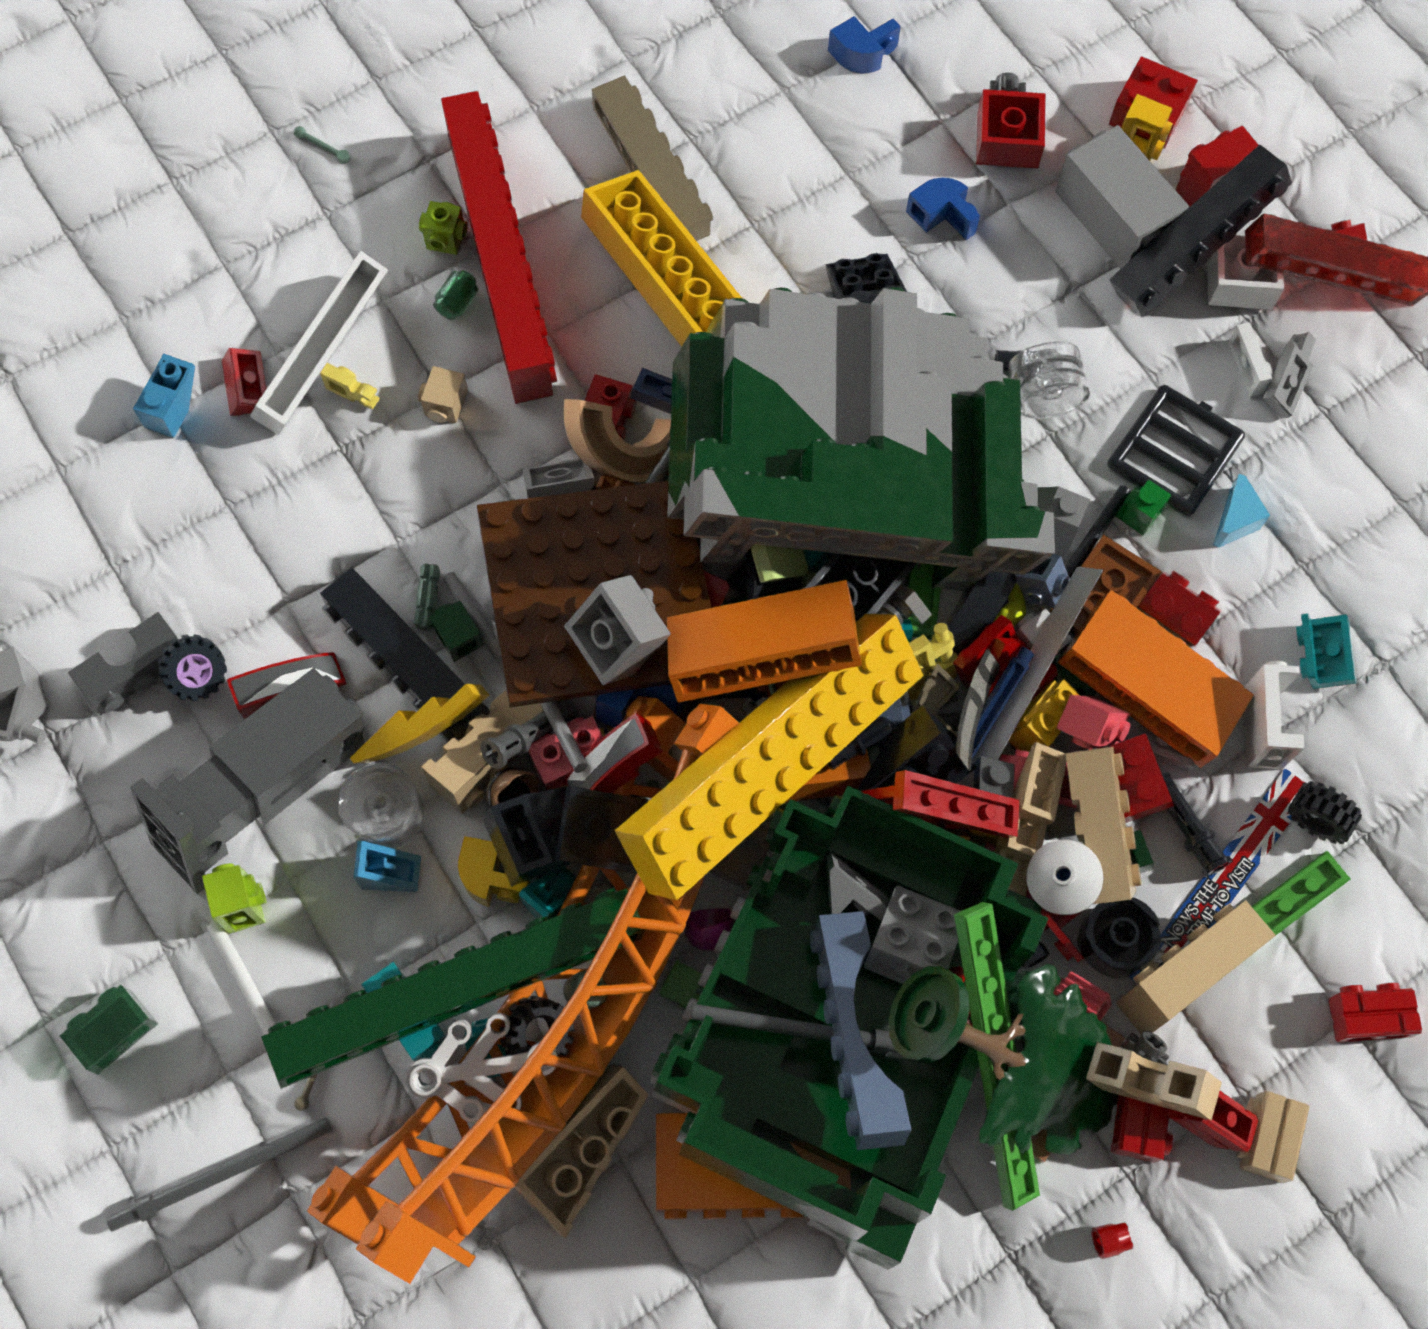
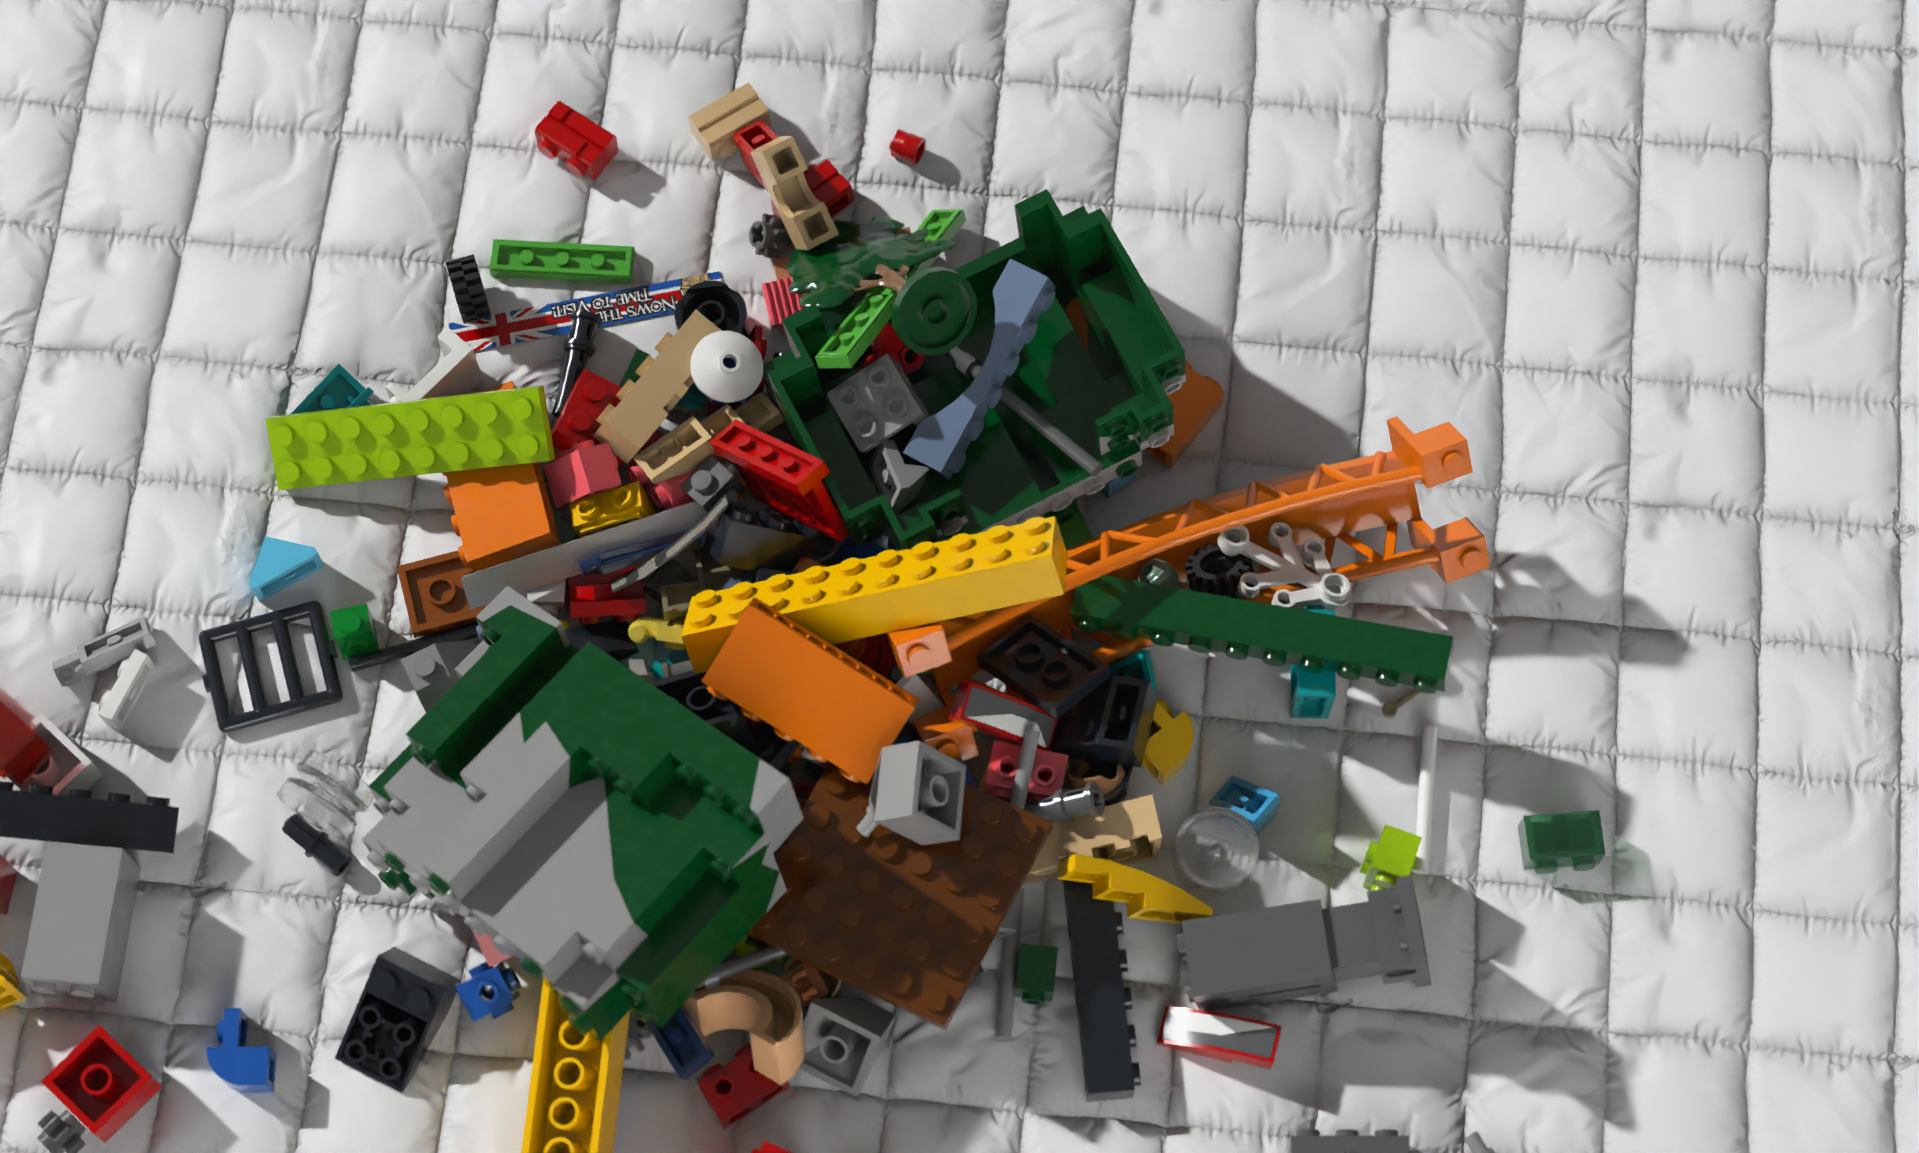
camera: 140 degrees left, 0 degrees up
(149, 1205) = (1611, 683): dark grey bar -> none
(199, 678) = (1295, 1106): black wheel -> none
(426, 596) = (1037, 1031): sand green axle -> none
(573, 1161) = (1262, 460): tan wedge -> none
(1180, 607) = (406, 528): red bracket -> none
(1196, 968) = (678, 256): tan wedge -> none
(1239, 649) = (411, 438): none -> lime plate

